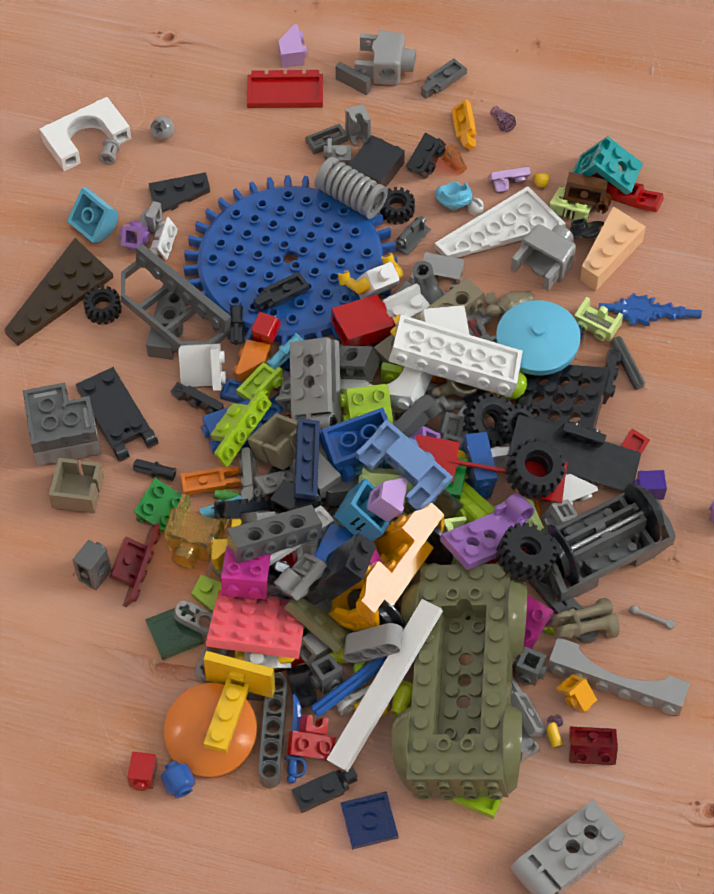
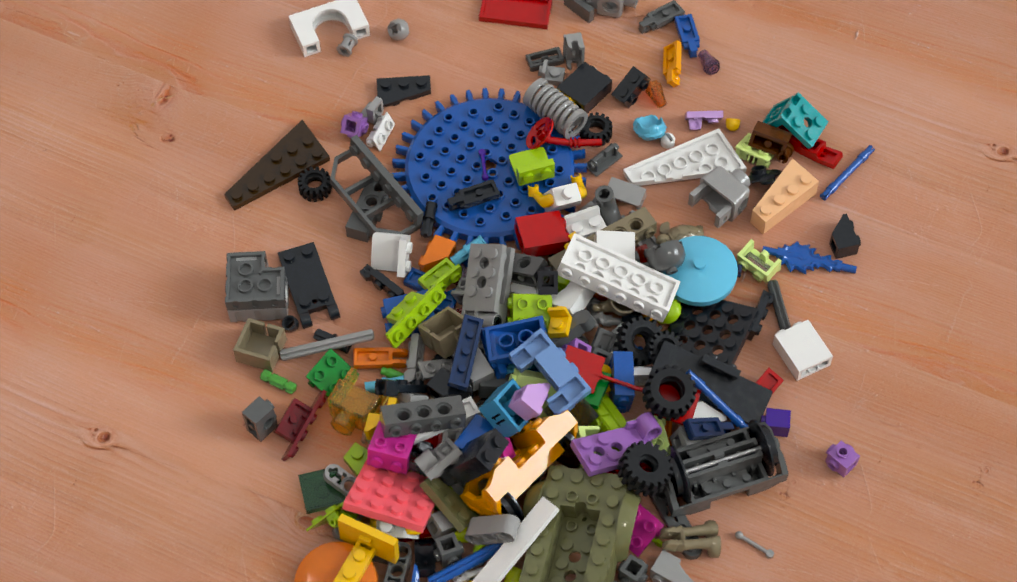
camera: 10 degrees right, 0 degrees up
(93, 216) = (321, 102): medium azure brick -> none
(103, 455) = (290, 321): none -> black hinge
(103, 522) = (278, 381): none -> bright green axle
(149, 474) = (325, 345): none -> light grey axle
(194, 655) = (331, 517): none -> lime hinge
(265, 328) = (453, 227): red piece -> none
(280, 246) = (482, 153): none -> dark purple hinge
(338, 252) = (532, 166): none -> lime bracket
(344, 217) = (543, 136): none -> red dish
(386, 375) = (550, 287): none -> black brick
(401, 411) = (559, 322): none -> yellow bracket
(475, 92) = (687, 34): none -> blue hinge
(503, 327) = (667, 257): none -> dark grey cylinder
(579, 501) = (706, 428): none -> dark blue hinge
(607, 487) = (700, 385): none -> blue piece
(662, 405) = (802, 349): none -> white brick
(682, 198) = (833, 186): none -> blue piece
(683, 284) = (843, 239): none -> black slope

